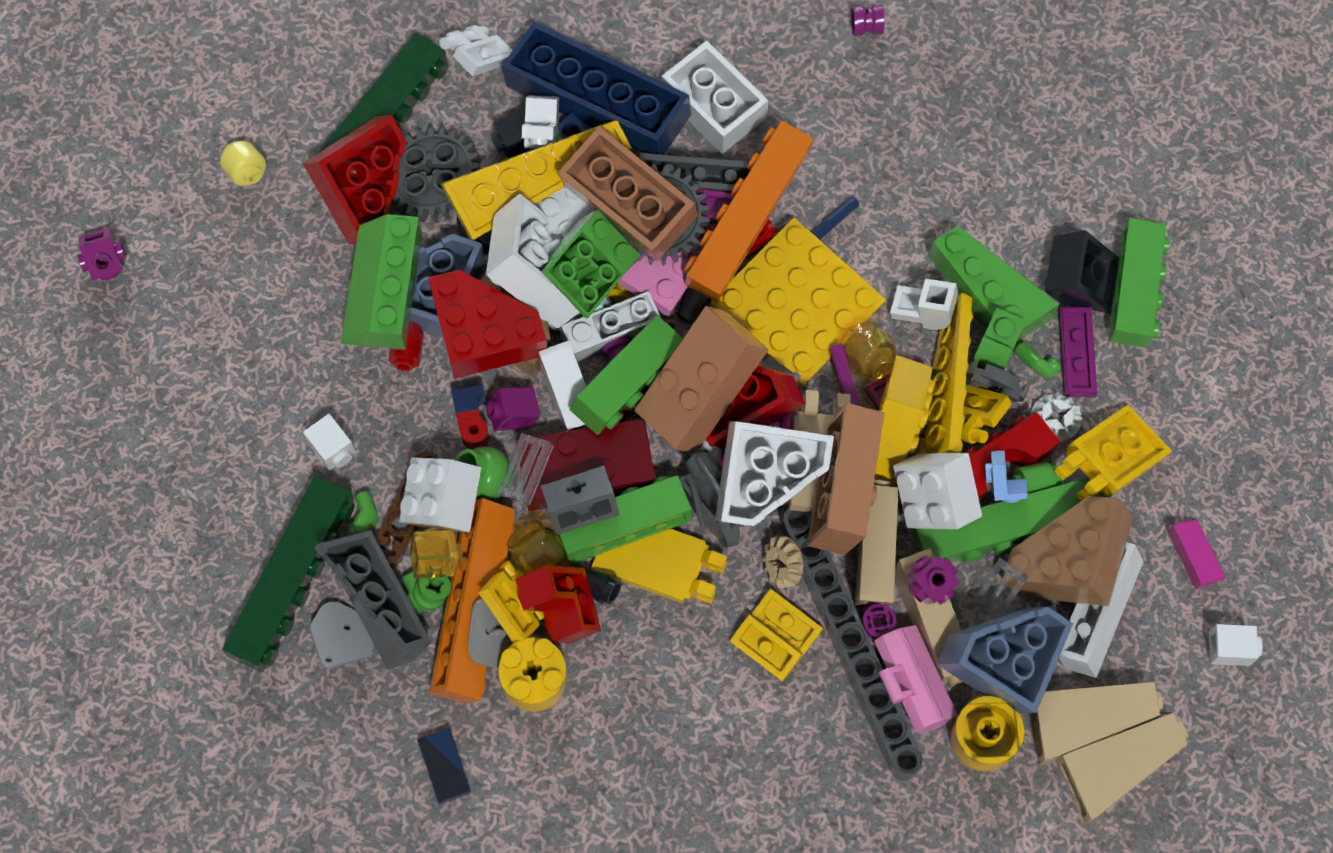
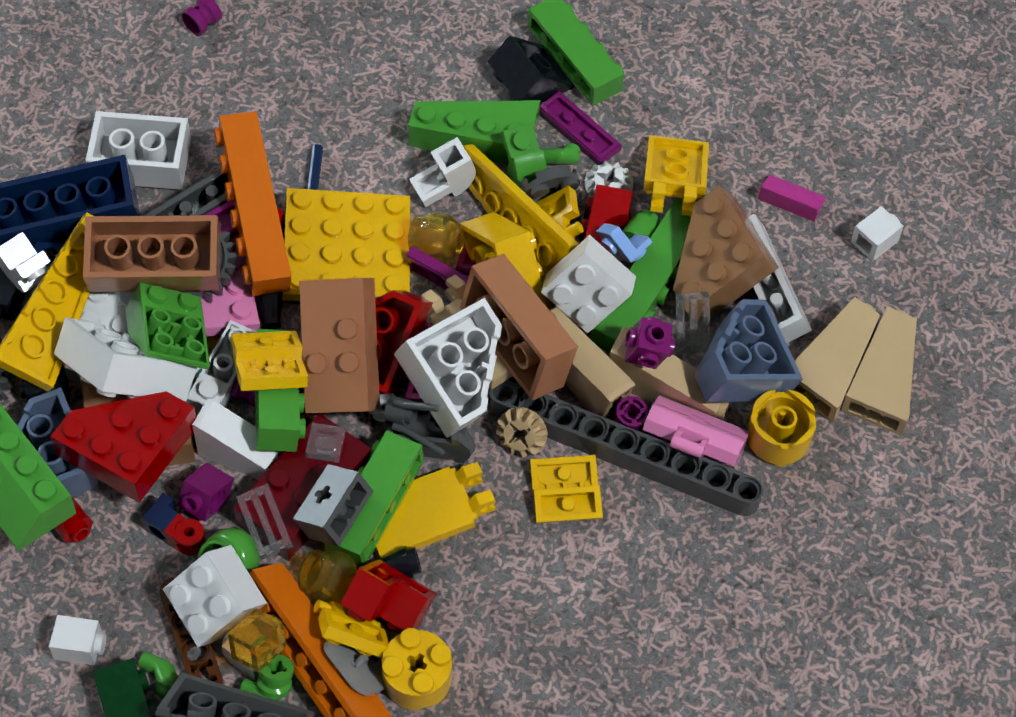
camera: 45 degrees left, 10 degrees down
(622, 446) = (325, 442): none -> clear plate
(636, 348) = (269, 360): none -> yellow slope

